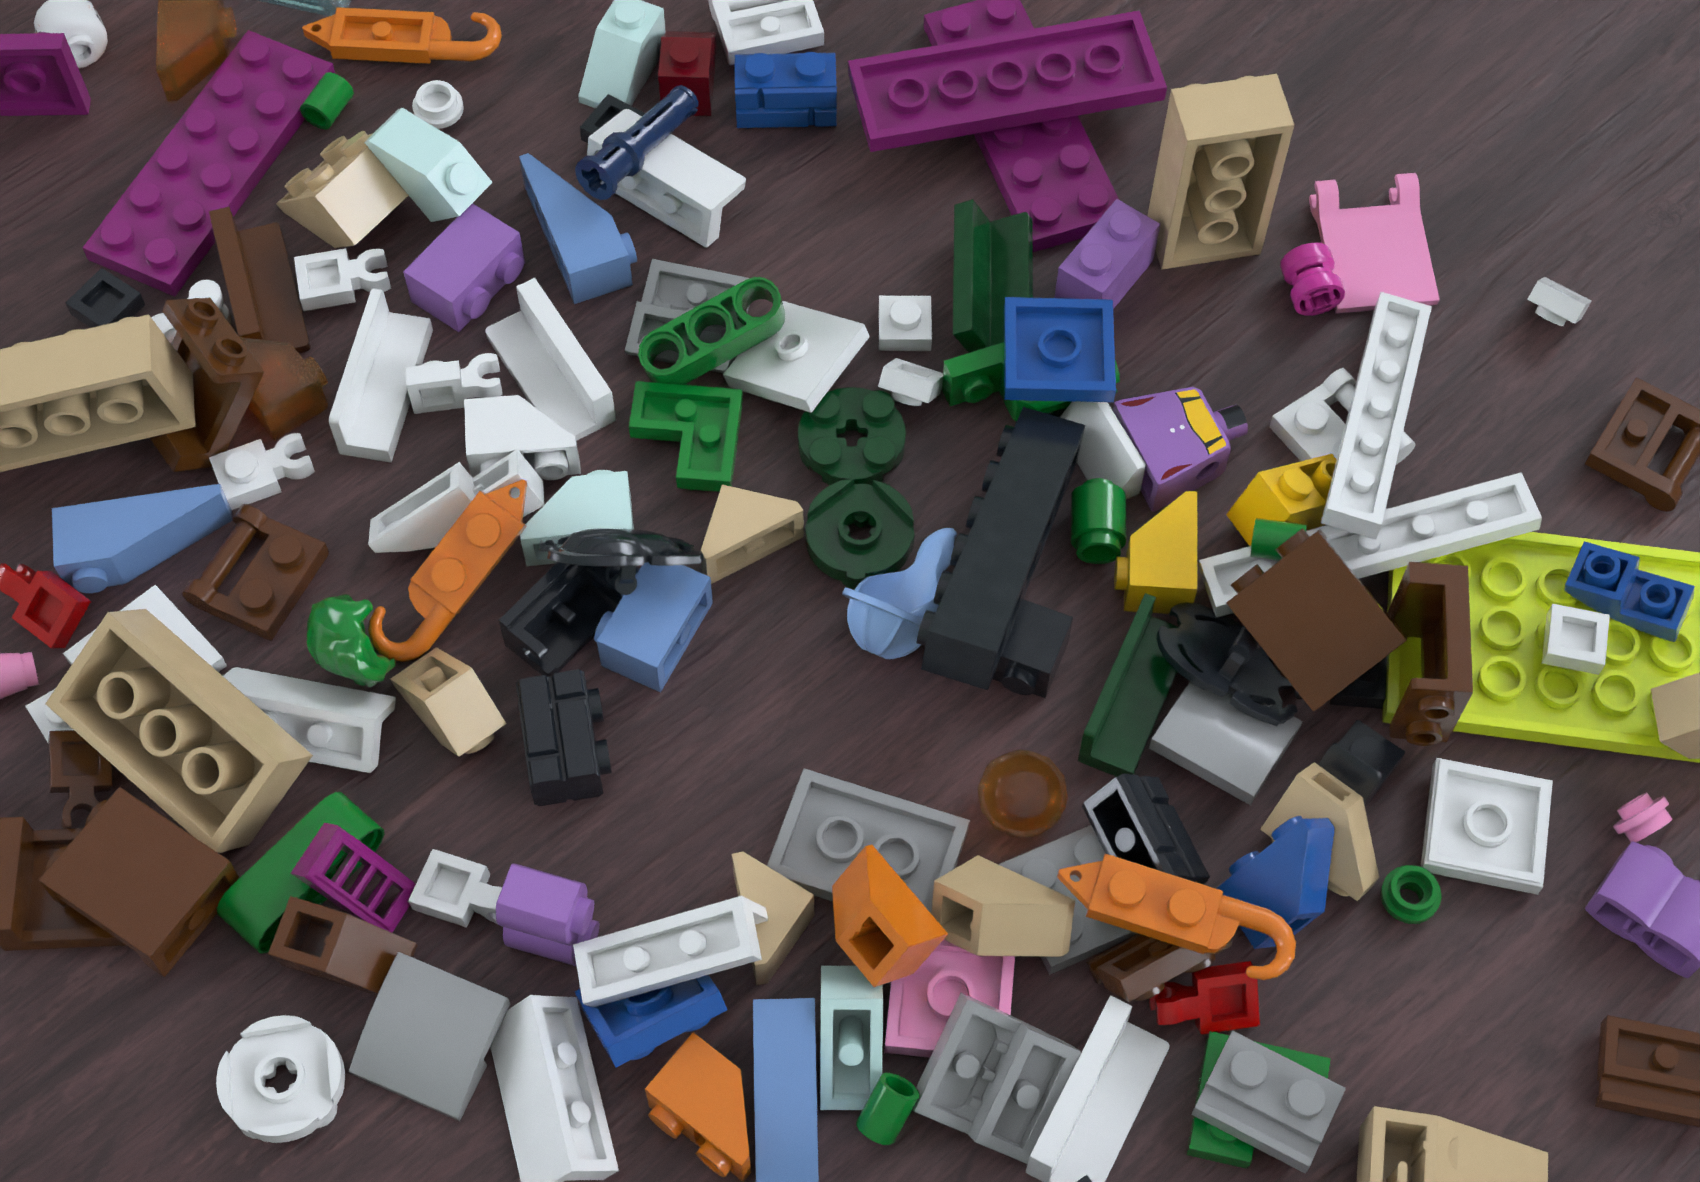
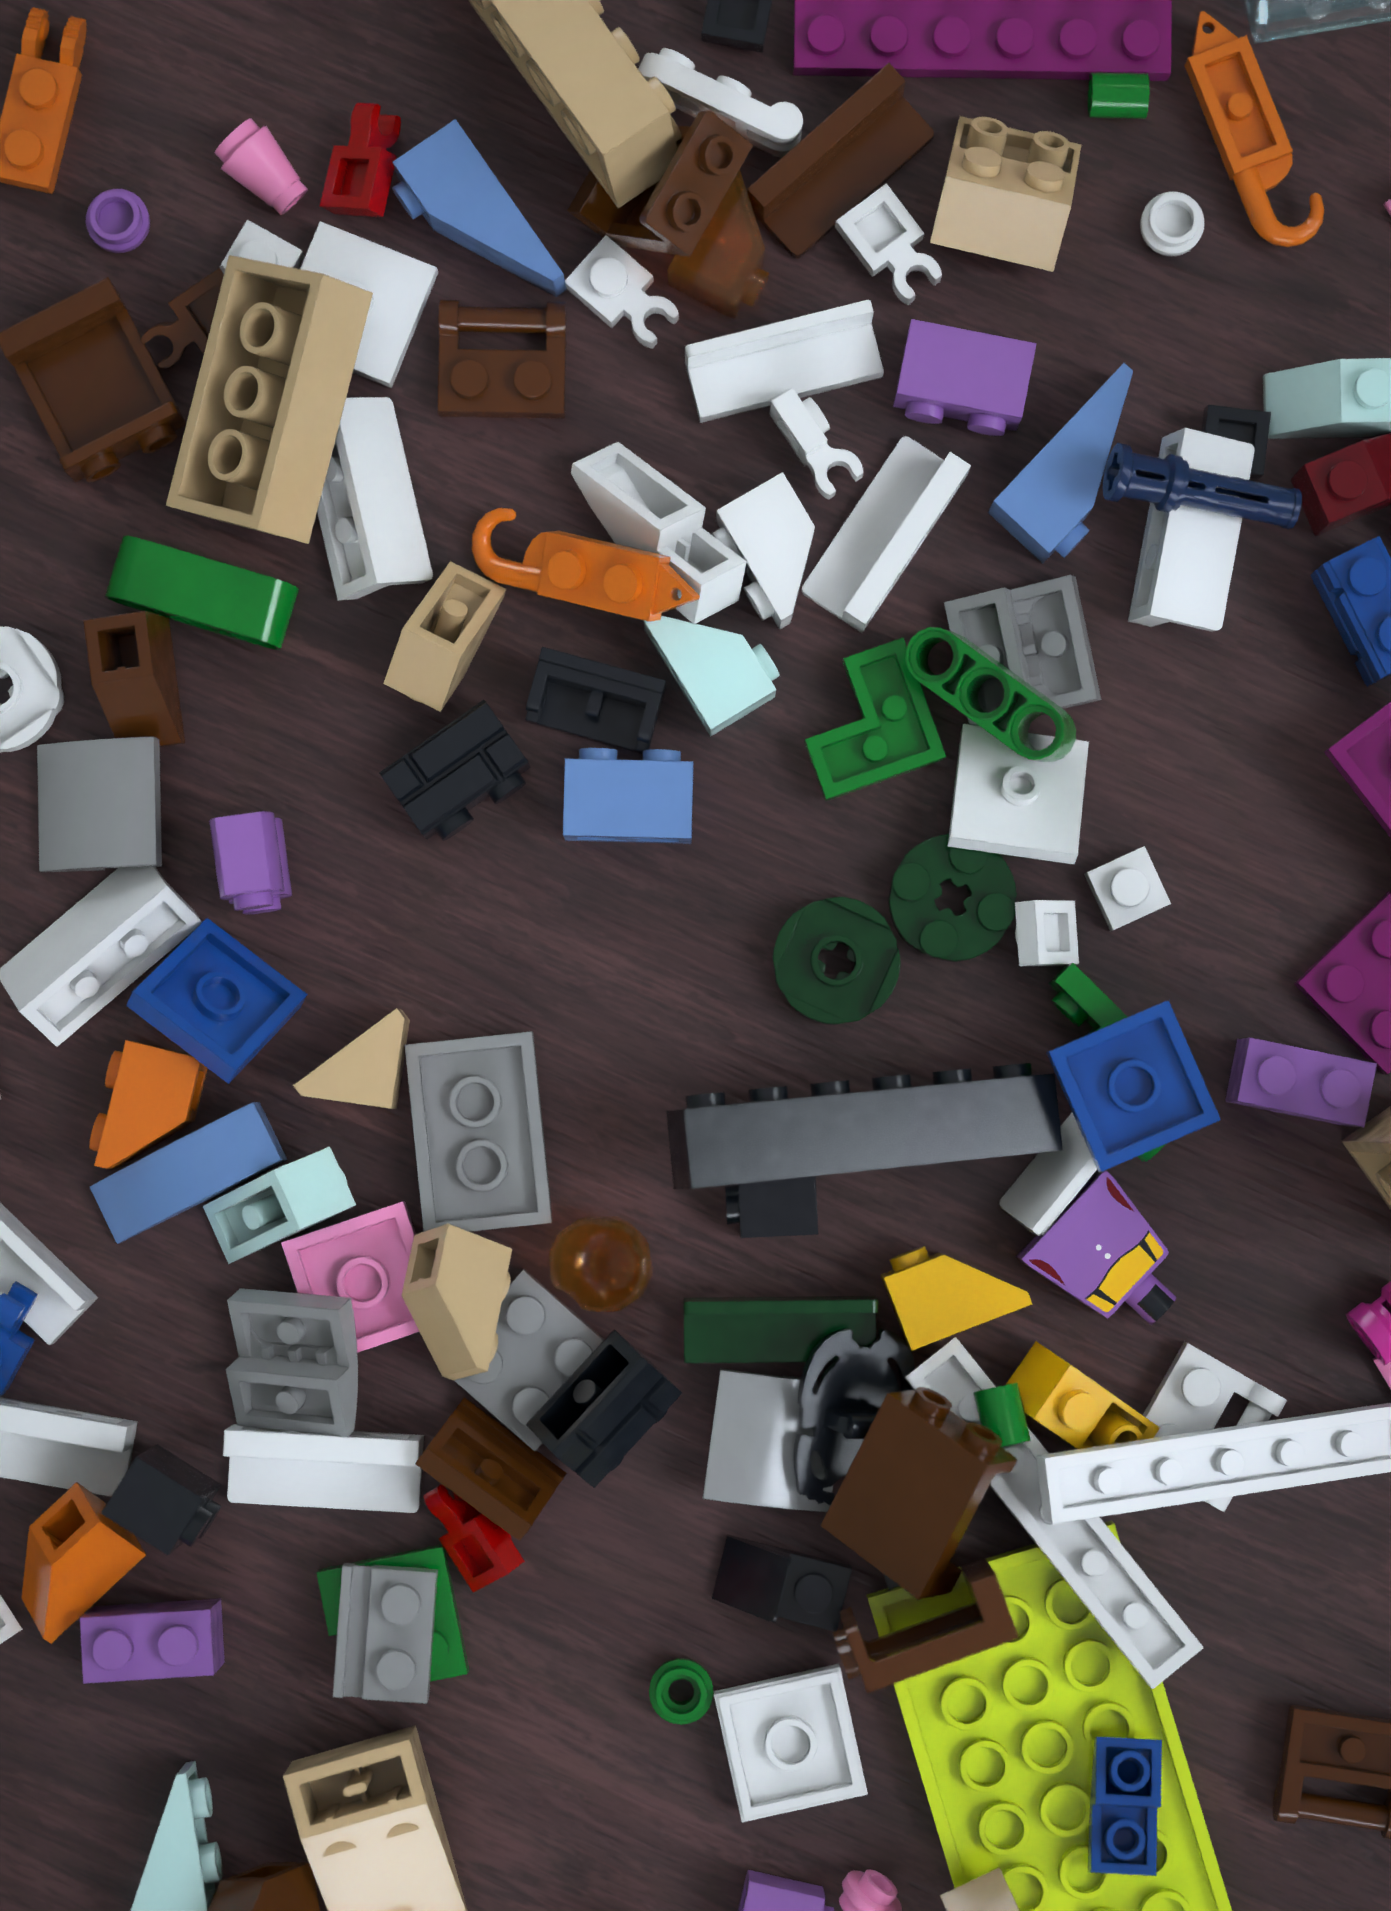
camera: 65 degrees right, 25 degrees up
(140, 879) = (108, 447): reddish brown panel -> none
(320, 856) = (208, 616): magenta slope -> none
(340, 643) = (449, 503): green hair -> none
(428, 165) = (1055, 272): light aqua slope -> none
(454, 889) = (252, 751): white plate -> none
(620, 551) = (658, 736): black shield -> none
(669, 951) = (260, 1001): white panel -> none
(748, 529) = (778, 839): tan slope -> none
(882, 920) = (386, 1187): orange slope -> none
(887, 1108) = (221, 1272): green hinge -> none
(890, 606) = (761, 1042): light blue piece -> none
(989, 264) = (1224, 959): dark green panel -> none
(1098, 521) = (963, 1208): green brick -> none
(1175, 910) = (517, 1476): orange plate -> none
(1286, 875) = (611, 1564): blue slope -> none
(1321, 795) = (700, 1585): tan slope -> none
(1575, 639) = (1034, 1768): white plate -> none

